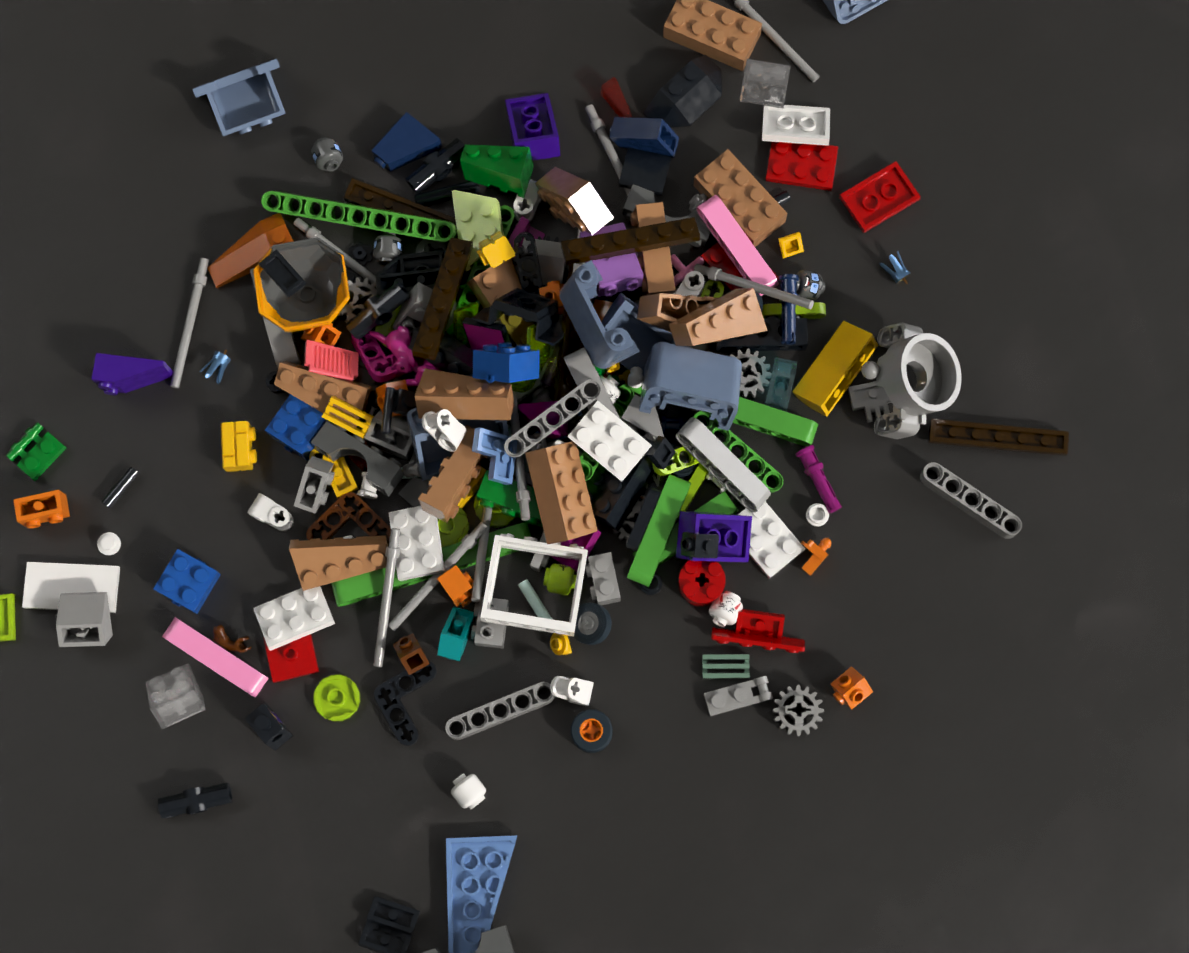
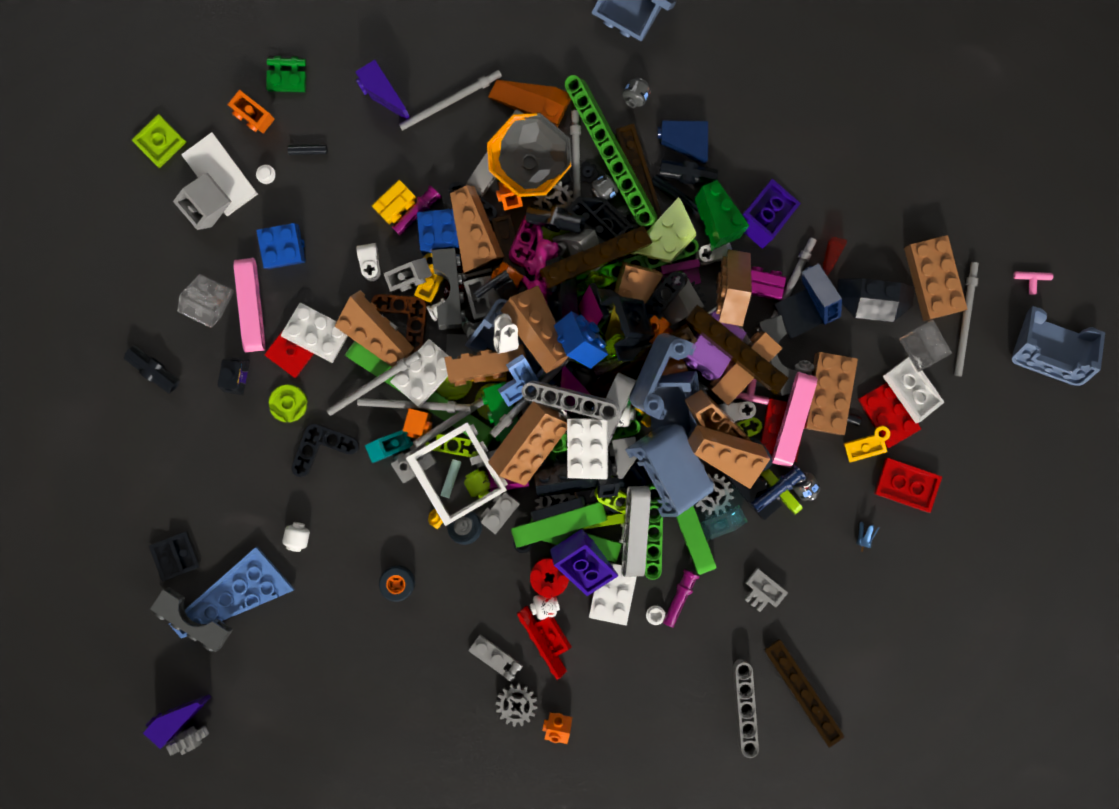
camera: 50 degrees right, 10 degrees up
(218, 359) = (437, 140): flat silver piece -> none
(223, 640) = (264, 299): reddish brown piece -> none
(261, 421) = (423, 203): none -> magenta pin
(282, 273) = (525, 136): black tile -> none
(331, 361) = (496, 217): coral window -> none
(334, 400) = (465, 261): yellow tile -> none
(411, 653) = (351, 428): reddish brown brick -> none
(488, 711) = (355, 508): light grey beam -> none
(495, 250) = (657, 264): yellow brick -> none
(523, 568) = (465, 452): none -> lime beam
(573, 690) = (413, 551): white piece -> none
(599, 173) = (767, 284): none -> magenta brick
(635, 379) = (646, 427): white arm -> none
(699, 545) = (567, 561): black bracket -> none
(716, 274) = (763, 420): light grey bar -> none
(746, 675) = (503, 640): sand green tile -> none
(791, 244) = (826, 452): yellow slope -> none
(814, 204) = (867, 446): none -> yellow hinge
(818, 556) = (629, 637): orange piece -> none
(835, 368) = (764, 549): yellow brick -> none
(935, 371) = (810, 624): light grey piece -> none

